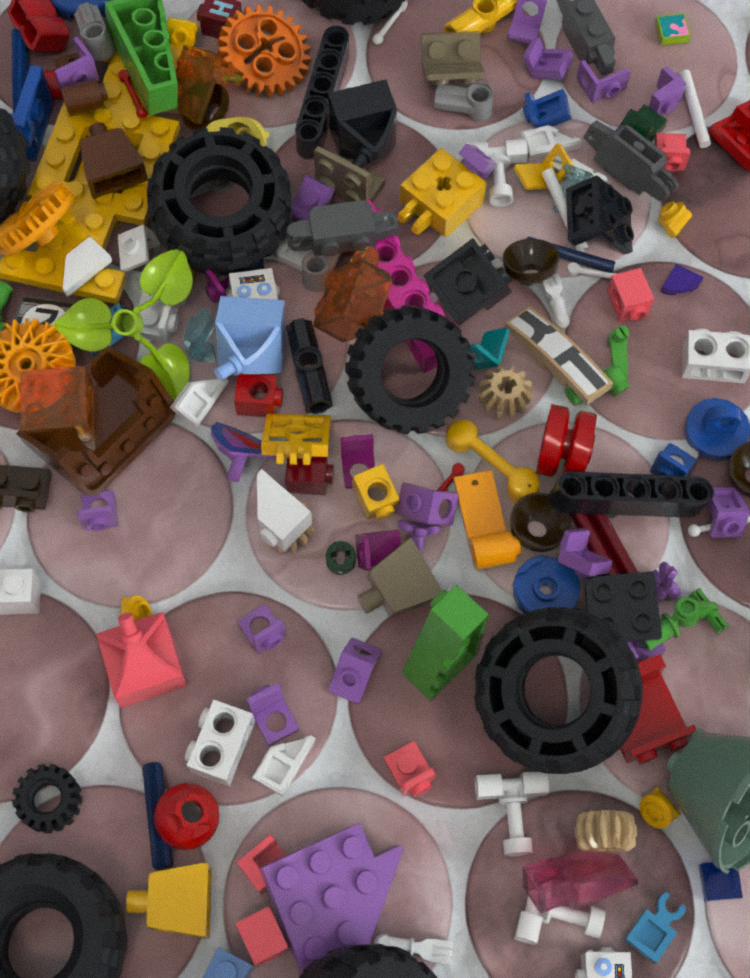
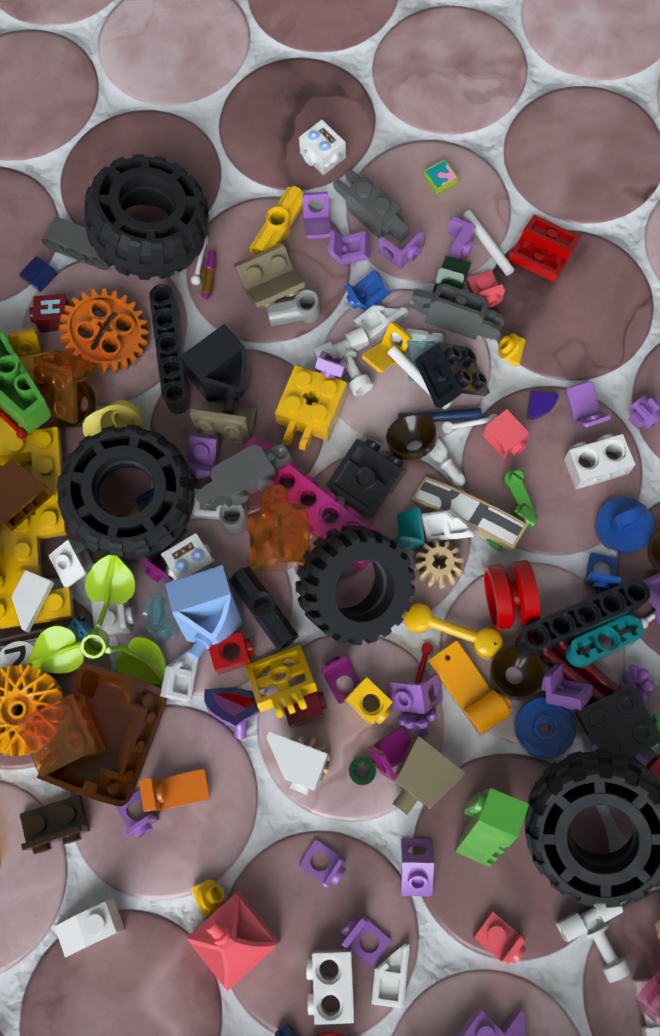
camera: 15 degrees left, 5 degrees up
(143, 501) = (174, 791): none -> orange bracket
(391, 37) = (207, 274): none -> piece
(528, 356) = (446, 526): none -> white tile
(634, 536) = (597, 650): none -> teal beam
(726, 295) = (585, 405): none -> medium lavender bracket

